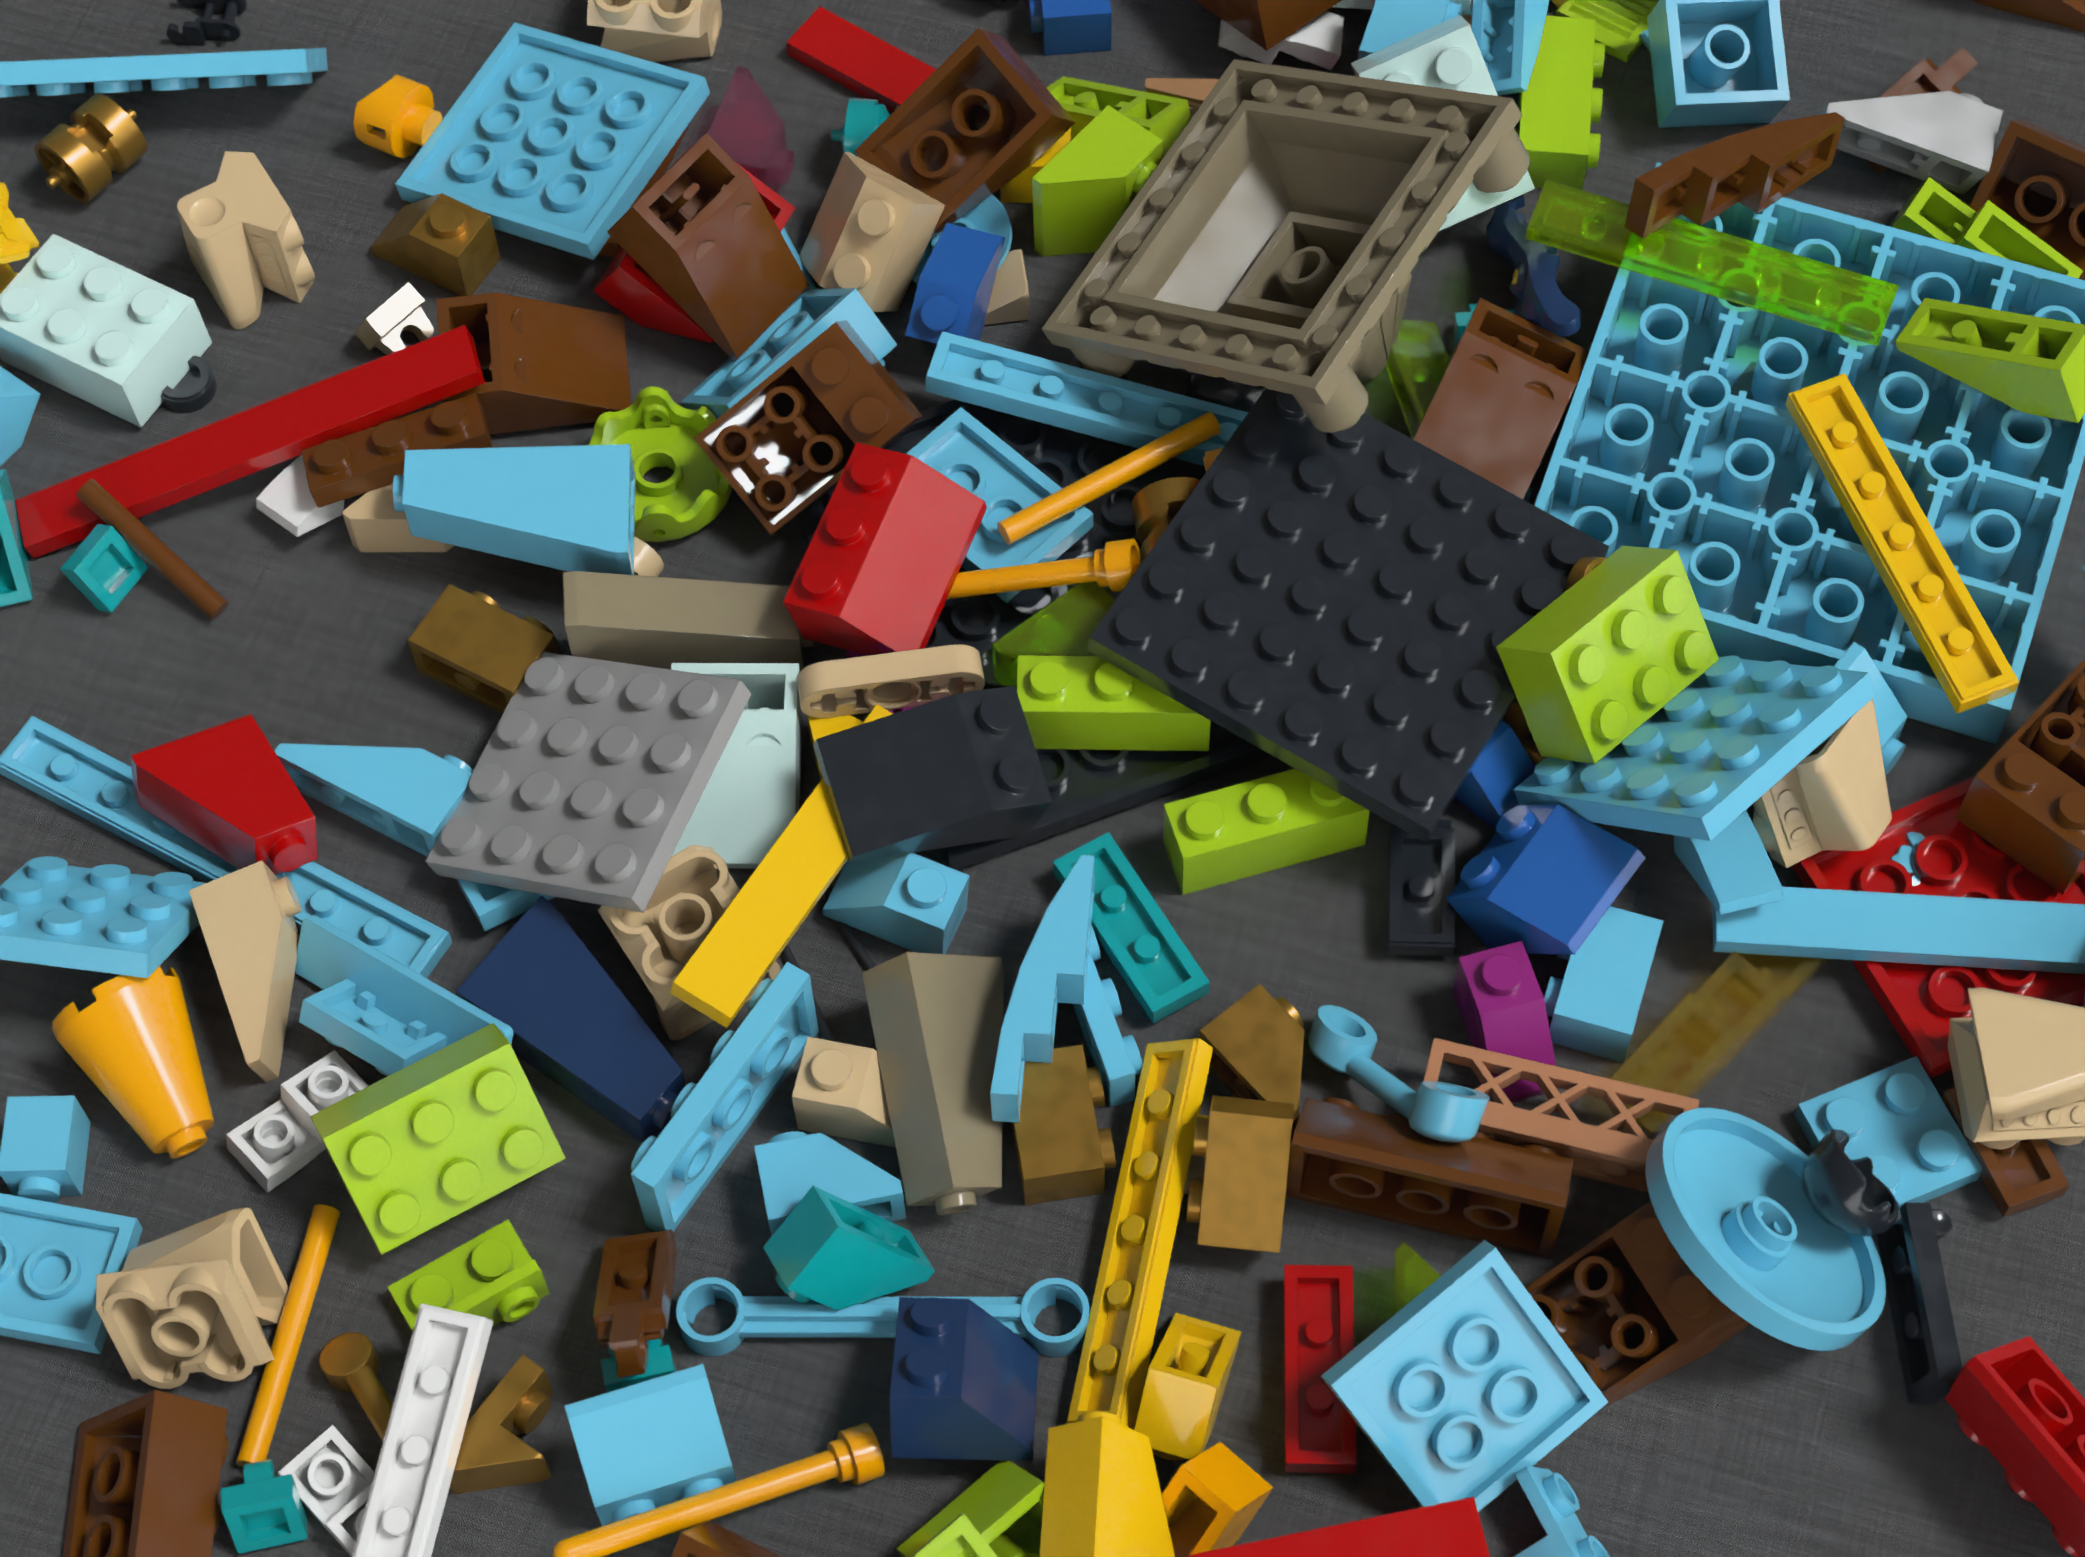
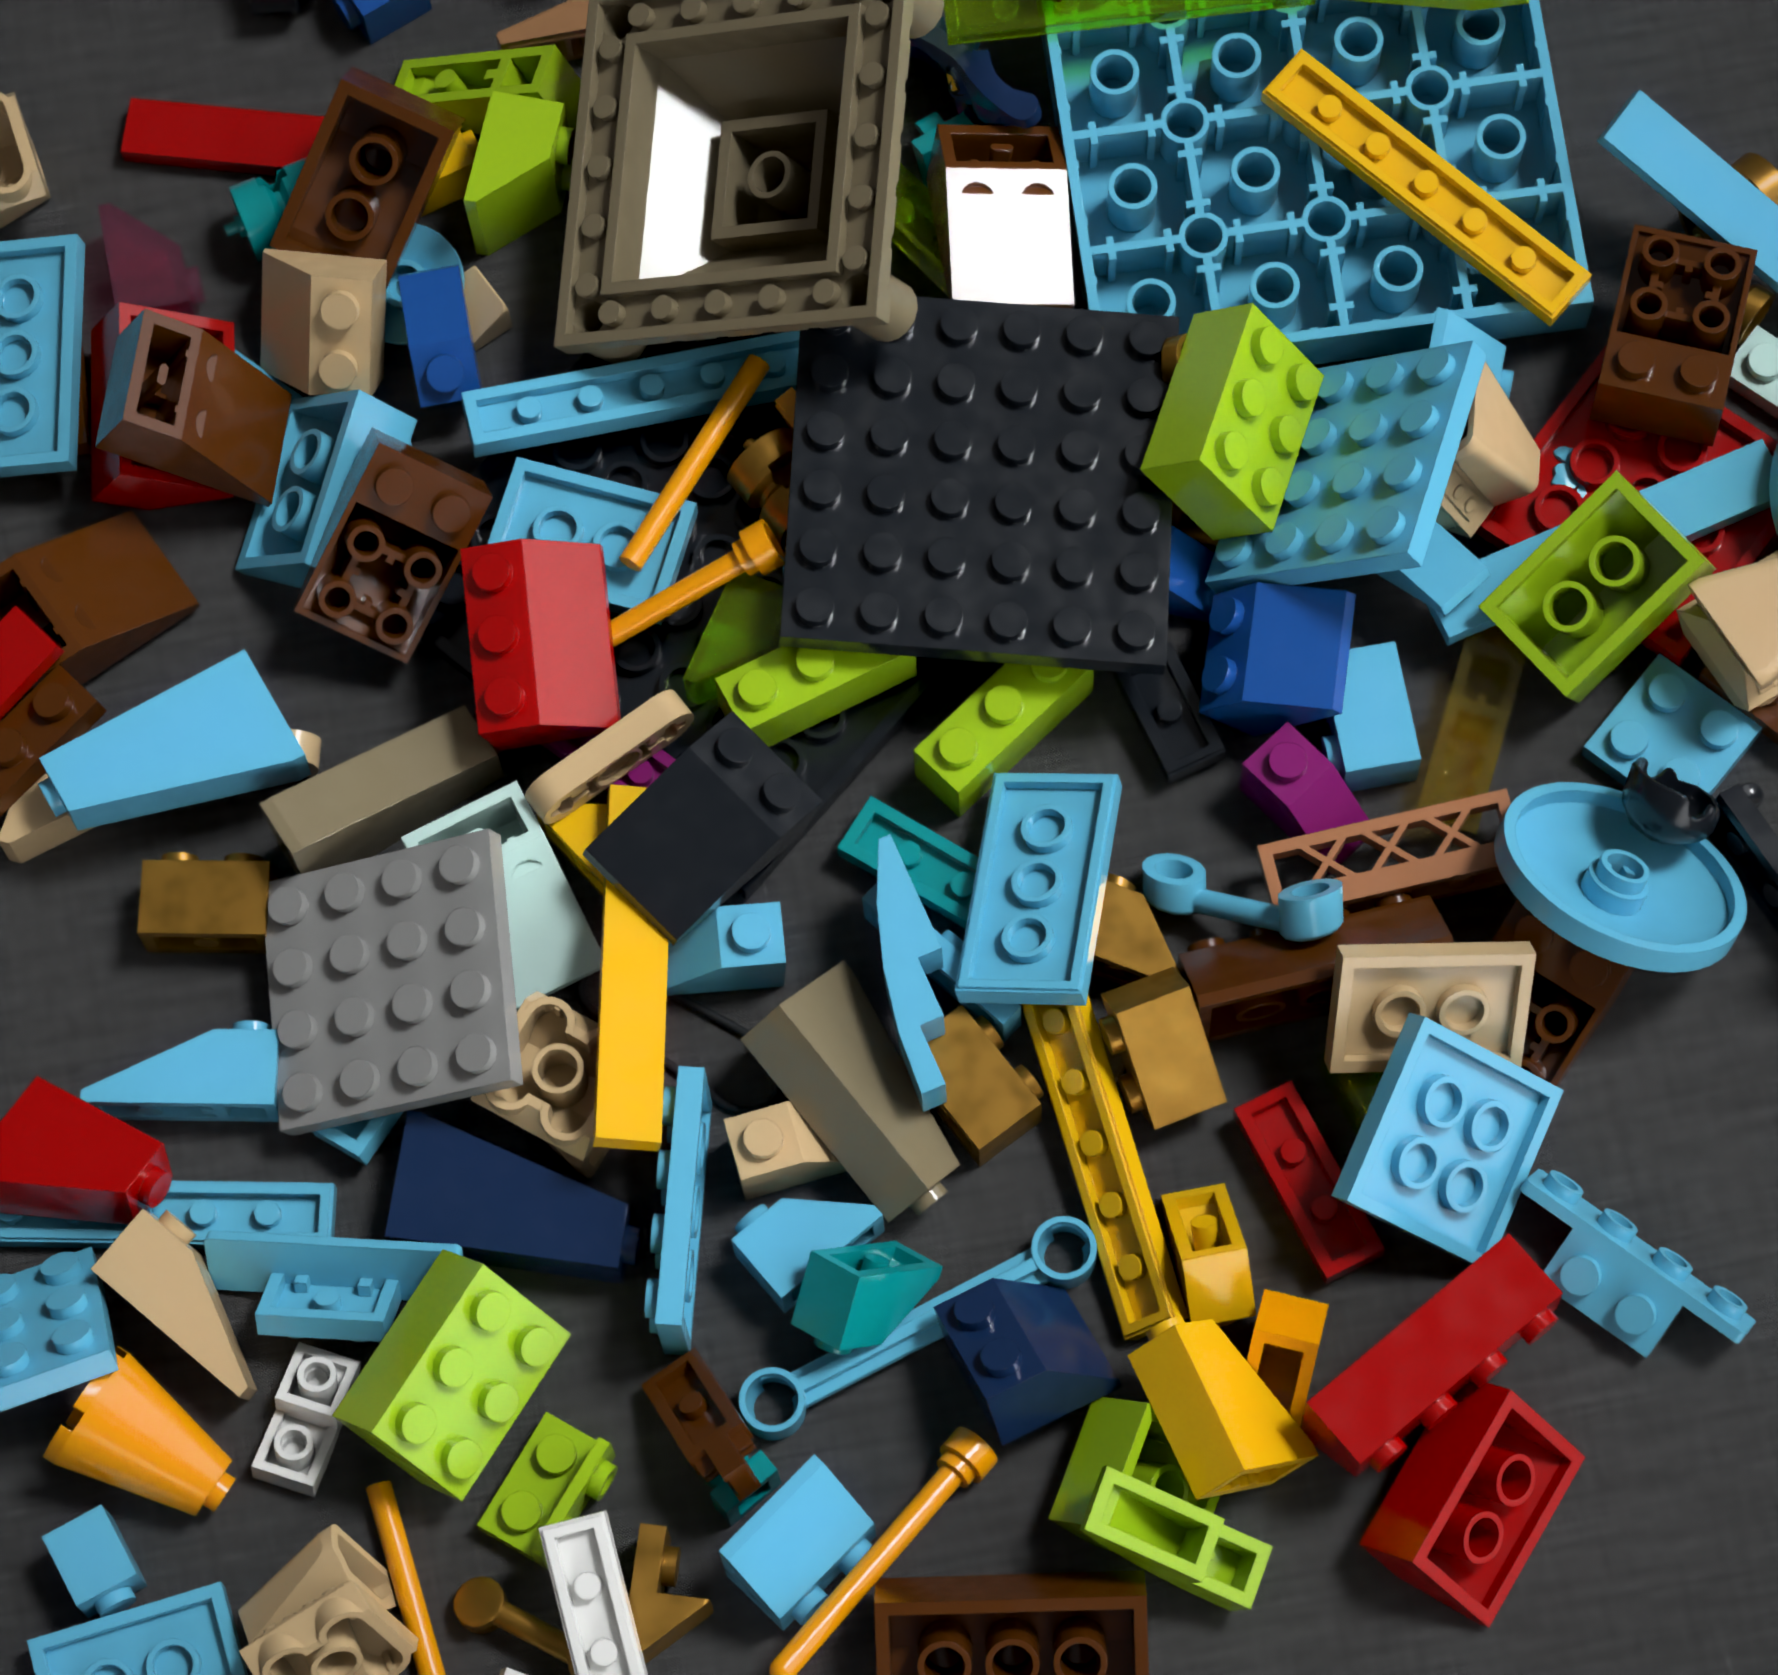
camera: 25 degrees left, 10 degrees up
(664, 437) = (259, 608): lime plate -> none
(1209, 978) = (1039, 889): none -> medium azure tile
(1554, 1247) = (1464, 986): none -> tan plate
(1879, 958) = (1596, 587): none -> lime slope

